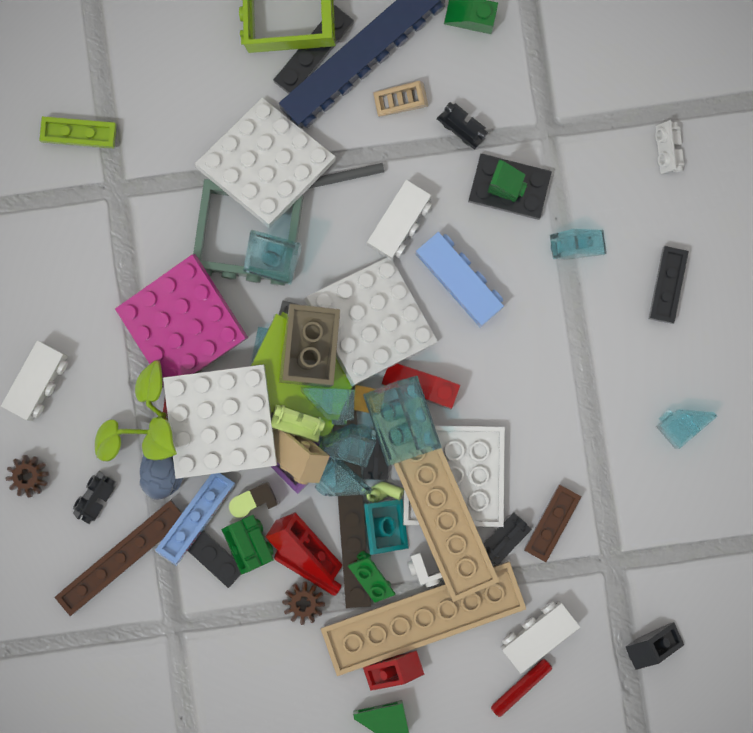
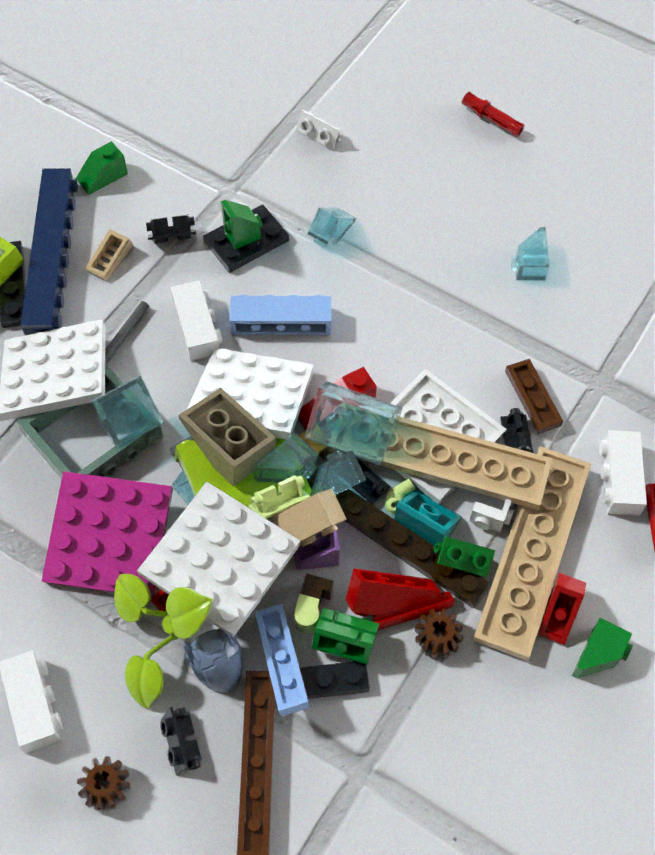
camera: 50 degrees left, 25 degrees down
(341, 480) = (361, 512): clear light blue slope -> none
(668, 285) = (417, 195): black plate -> none

